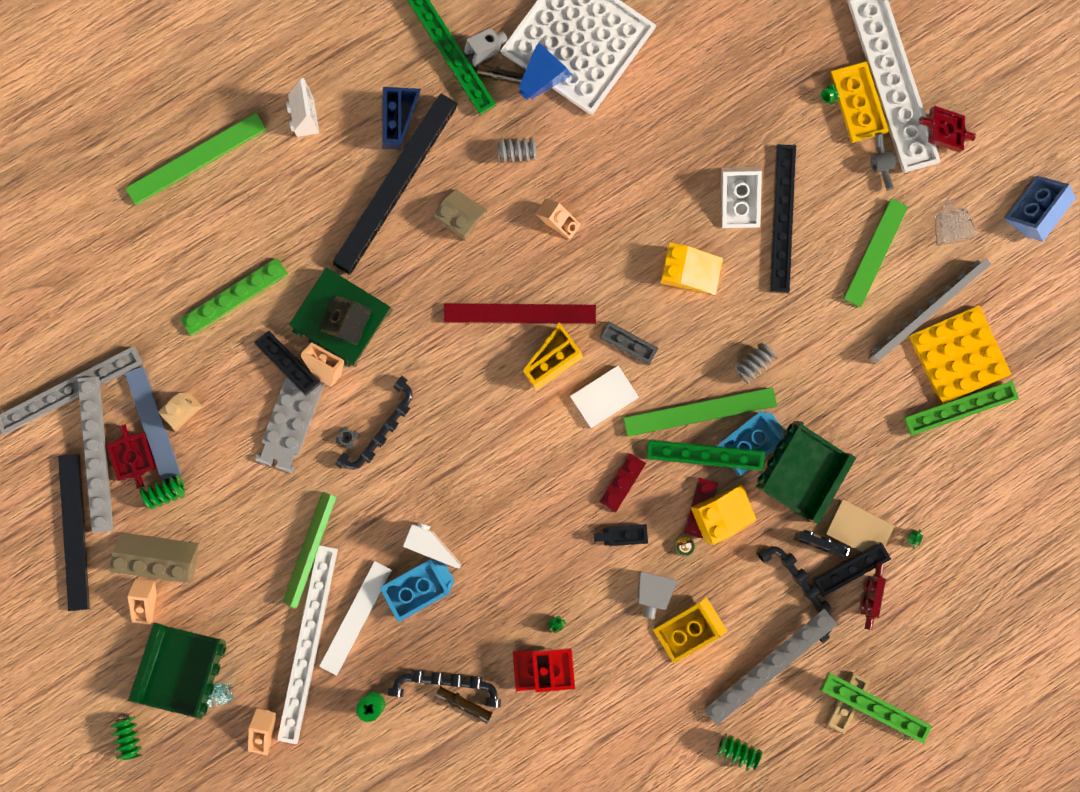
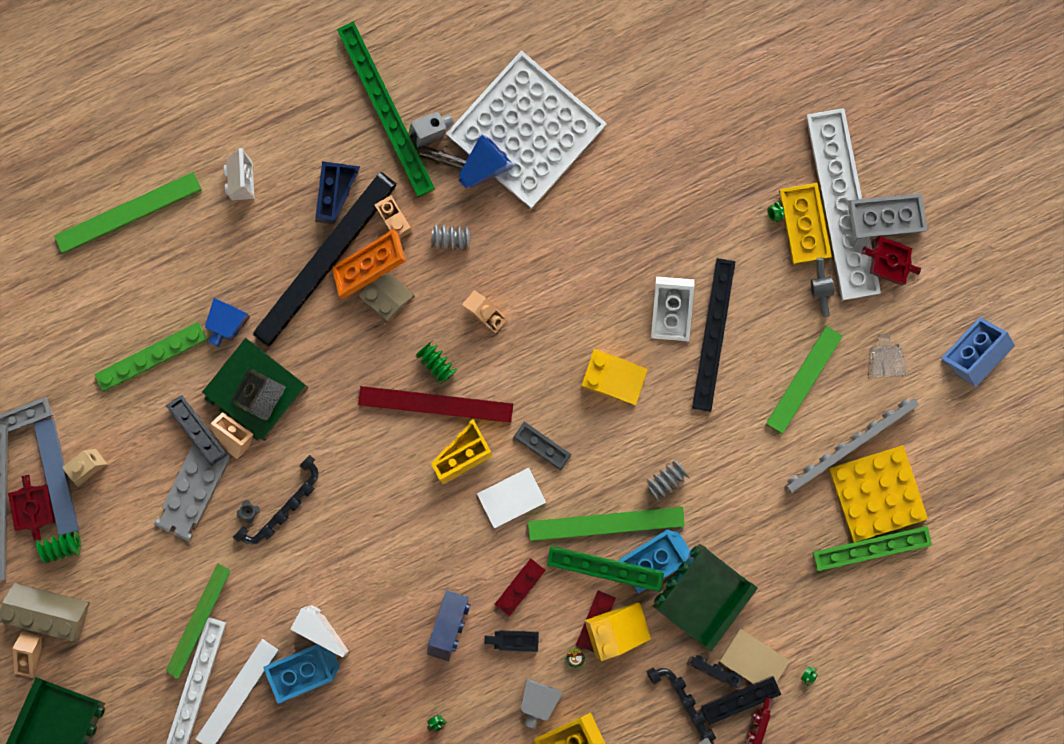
camera: 15 degrees right, 0 degrees up
(303, 254) = (224, 321): none -> blue torso
(439, 182) = (368, 264): none -> orange plate
(459, 137) = (393, 216): none -> light nougat slope
(515, 273) = (436, 363): none -> green piece
(557, 527) = (448, 625): none -> dark blue wedge
(938, 86) = (887, 216): none -> light grey plate

